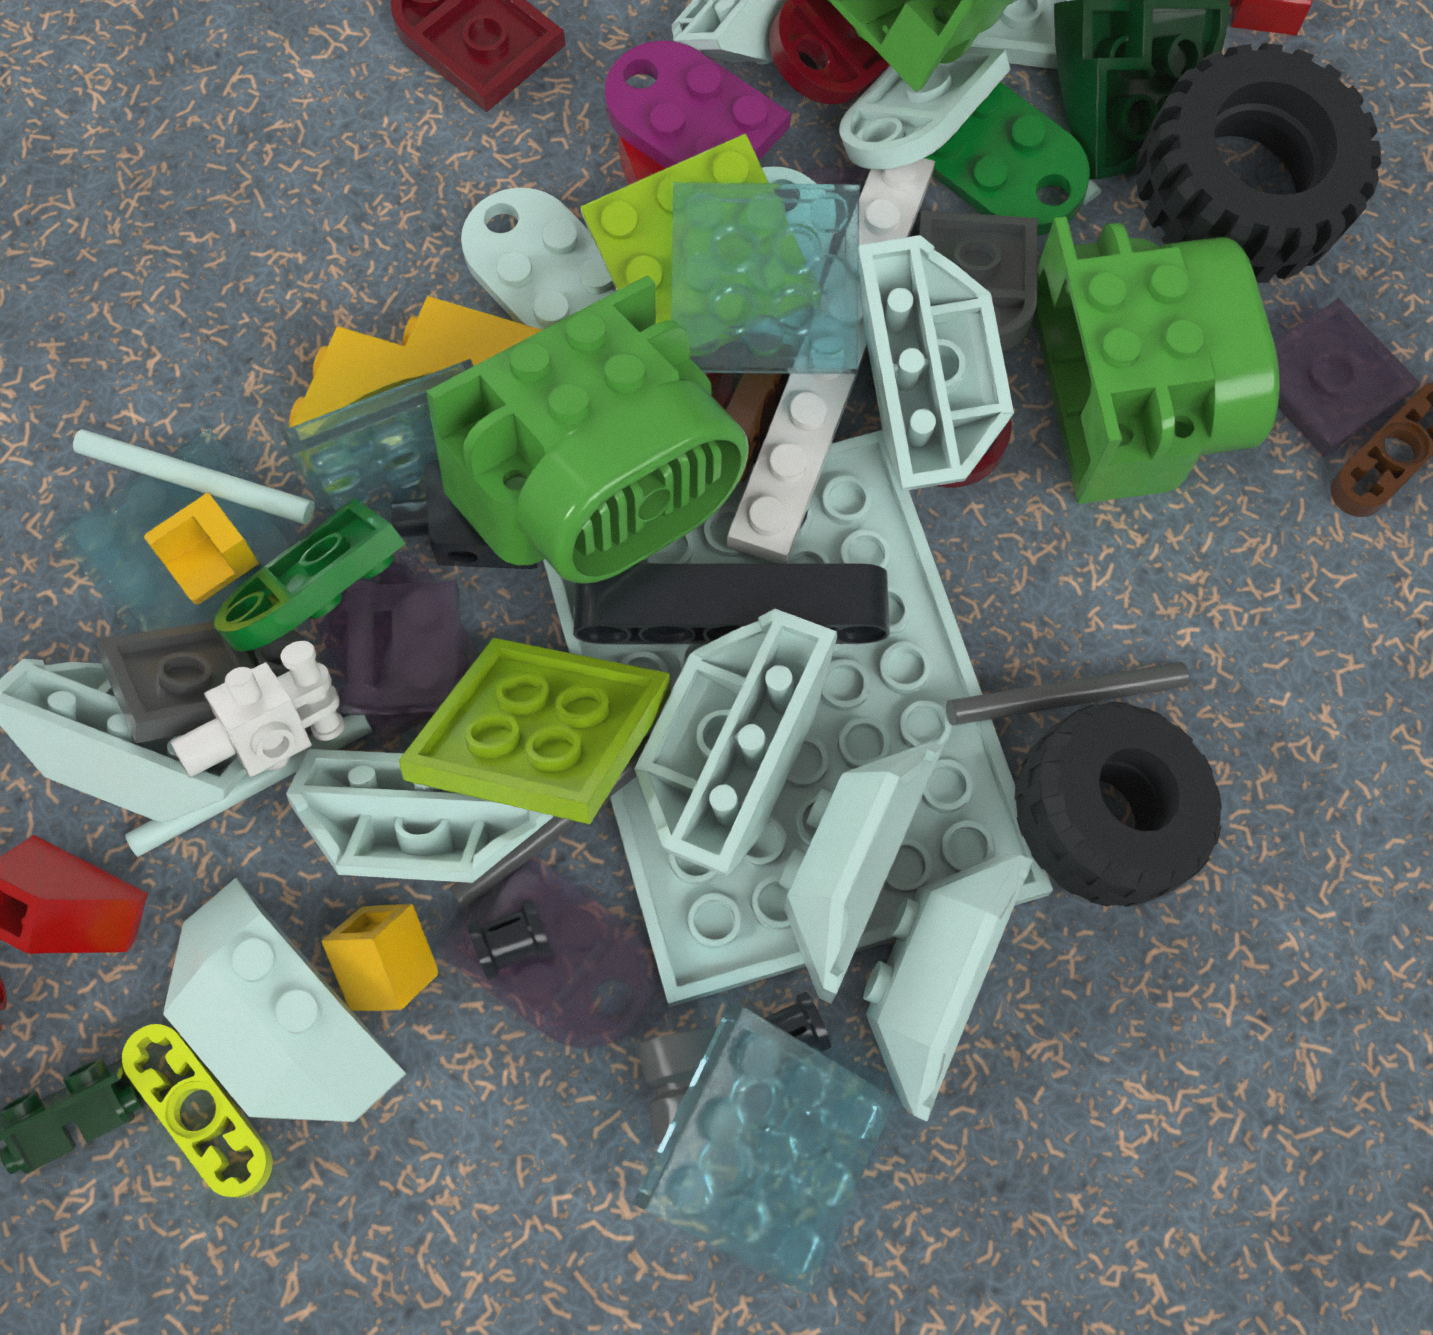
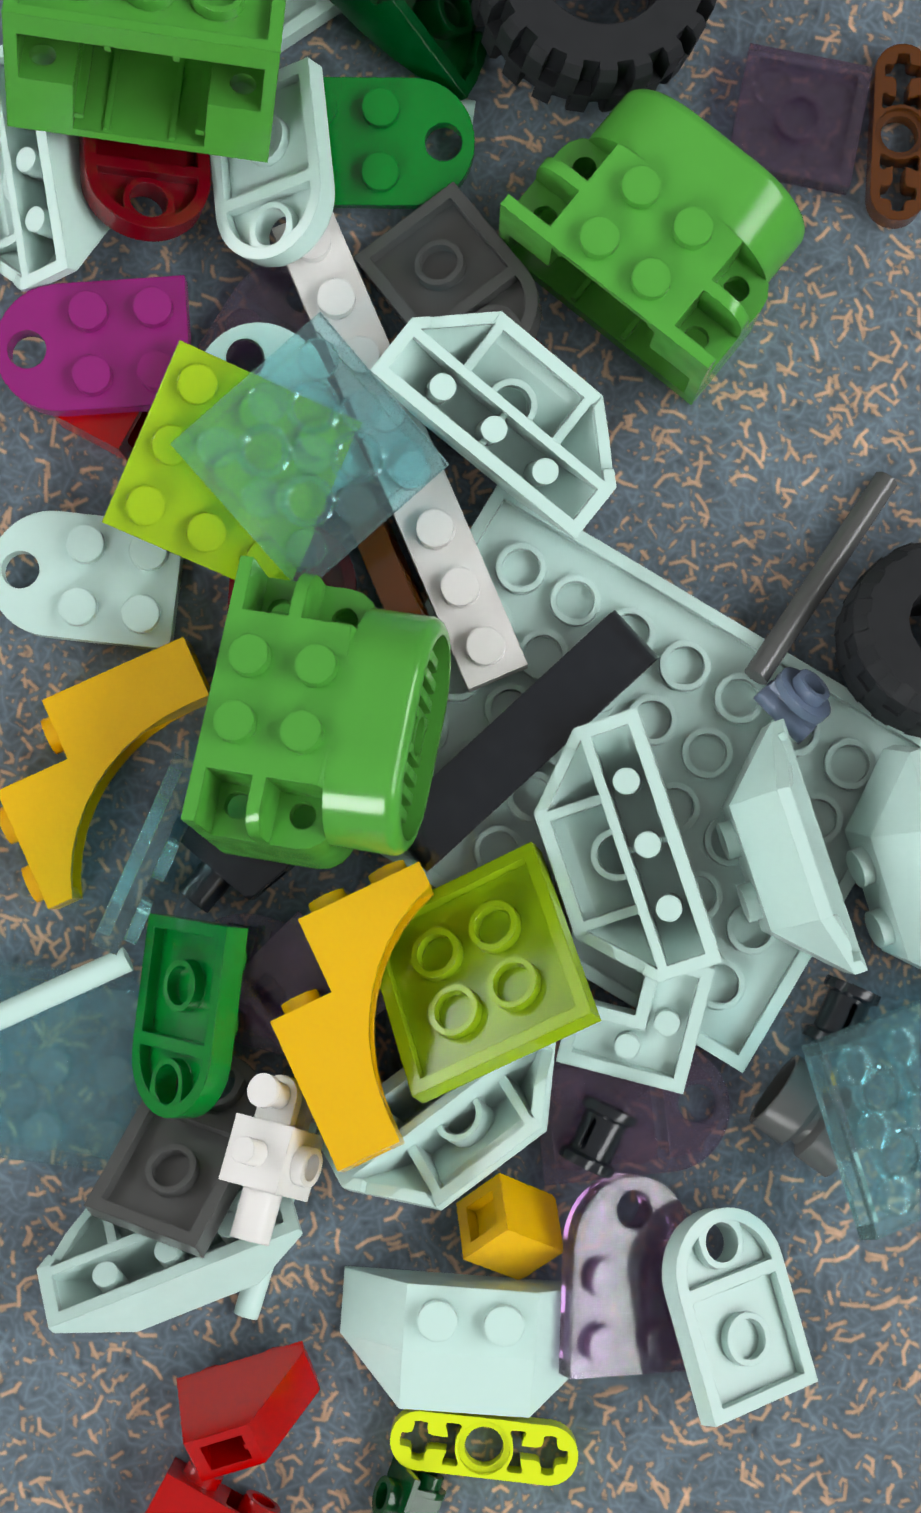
camera: 40 degrees left, 15 degrees up
(201, 549) = (82, 1064): yellow panel -> none
(390, 672) = (333, 1035): none -> yellow arch
(421, 1082) = (613, 1285): none -> clear purple plate
(480, 1189) = (734, 1315): none -> light aqua plate
(620, 906) = (646, 1043): none -> light aqua plate
(967, 757) = (798, 698): none -> sand blue plate

